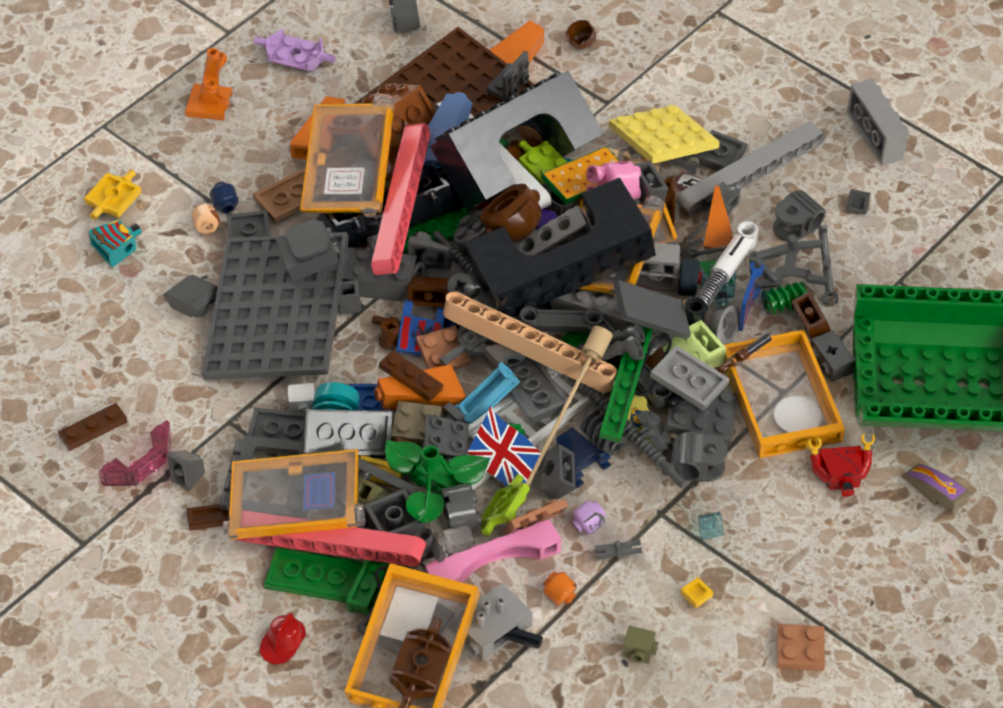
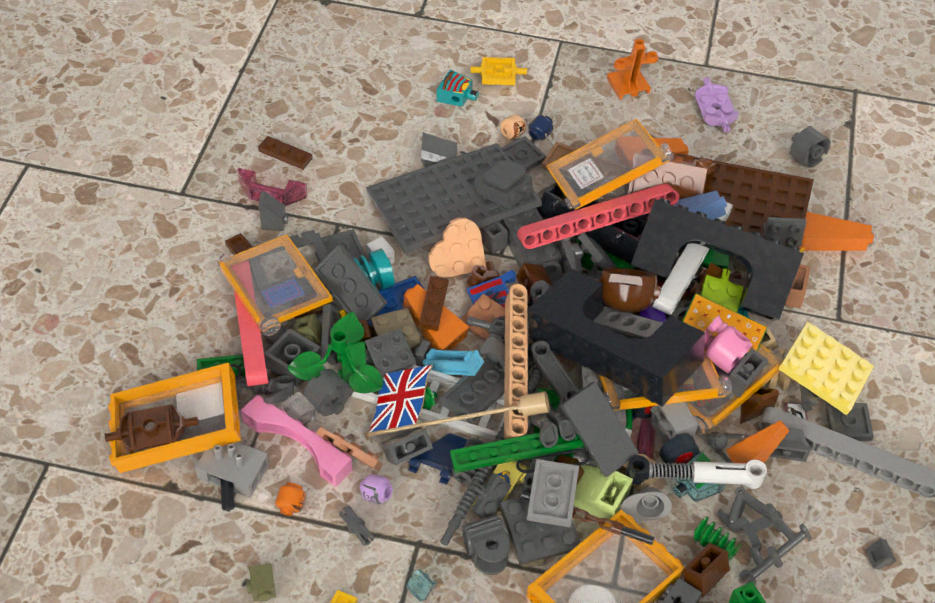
camera: 60 degrees right, 0 degrees up
(282, 639) = (153, 340): red piece -> none
(312, 574) = (220, 328): green tile -> none
(352, 329) = (458, 250): none -> light nougat plate
(444, 226) = (598, 255): none -> dark grey plate
(504, 505) = (357, 423): lime plate -> none
(581, 34) = (890, 267): reddish brown hair -> none
(750, 294) = (691, 507): blue flag -> none
(799, 211) = (825, 510): dark grey piece -> none

